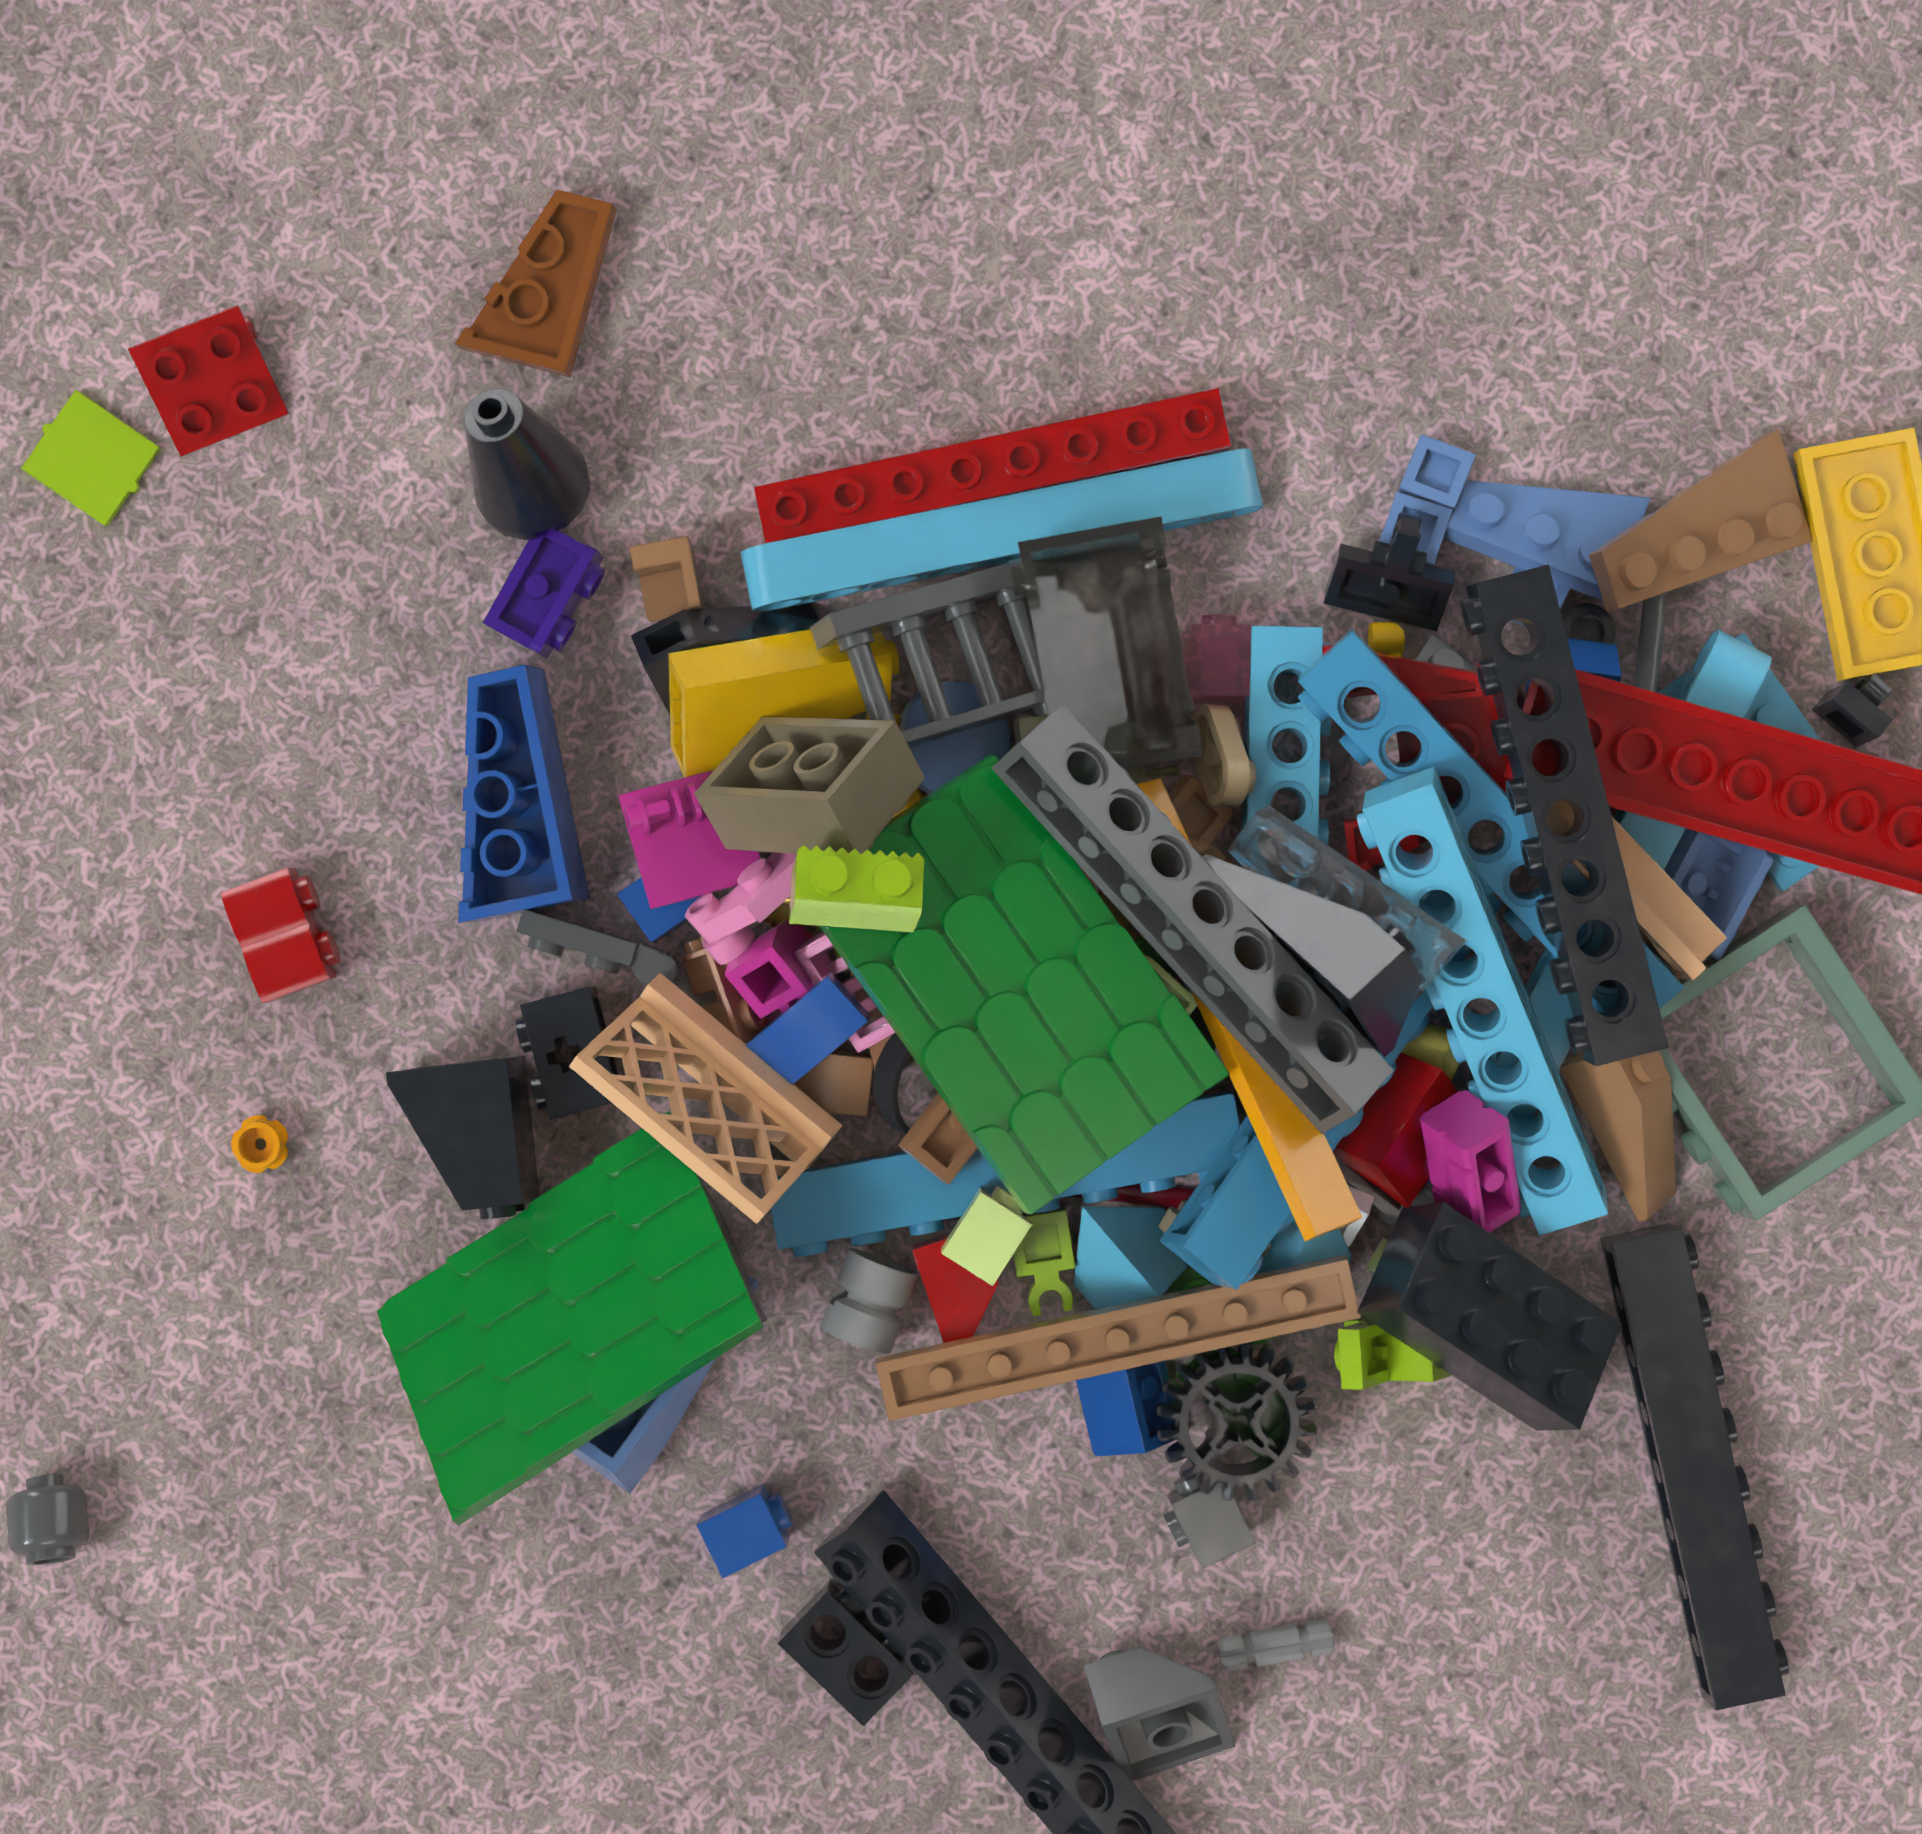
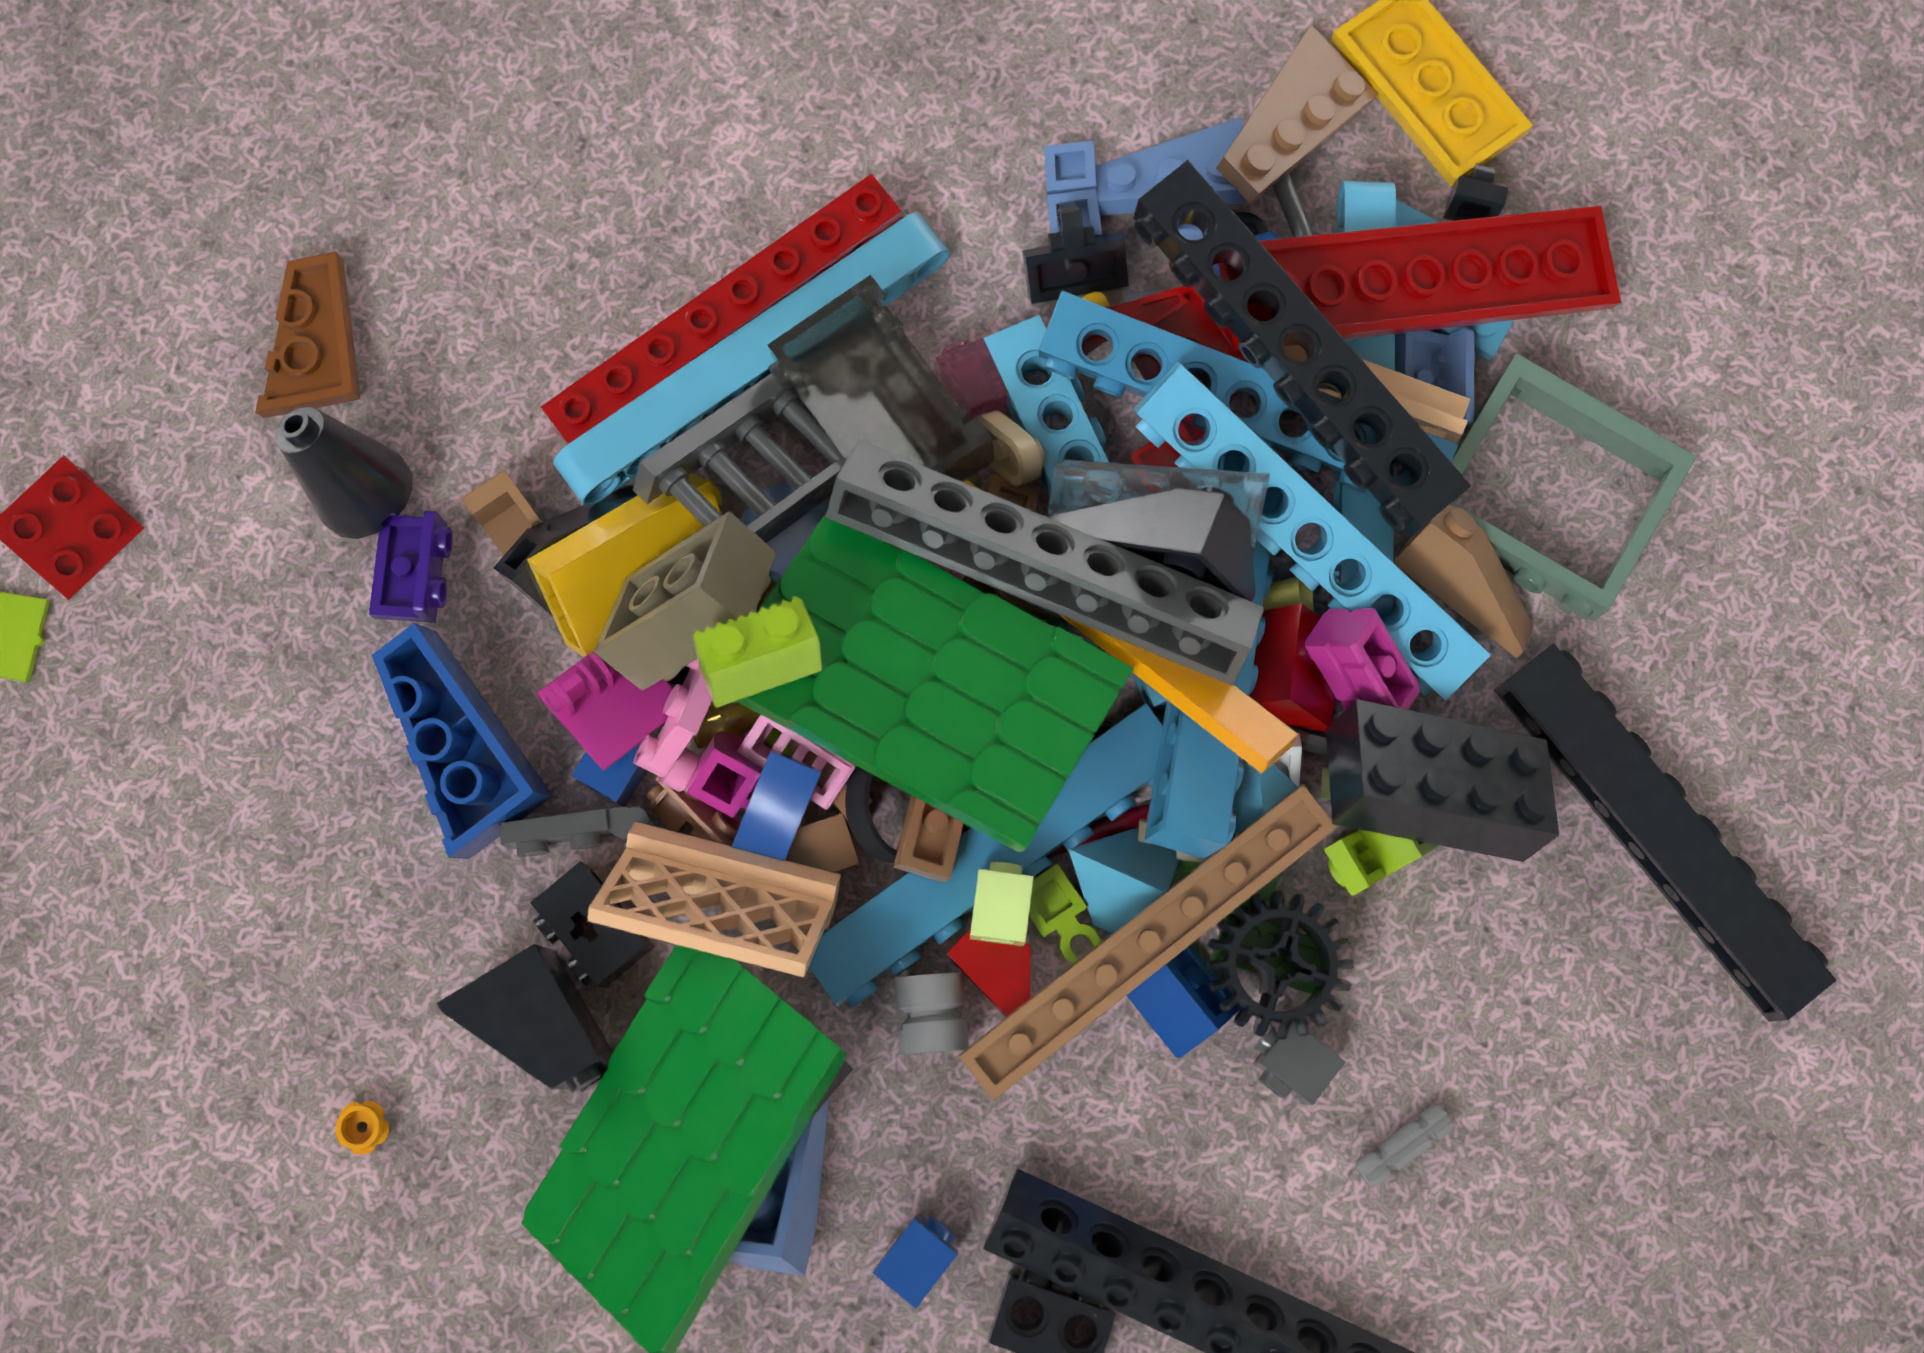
camera: 25 degrees left, 10 degrees down
(281, 934) = (306, 941): red brick -> none
(1156, 1711) = (1335, 1247): dark grey slope -> none

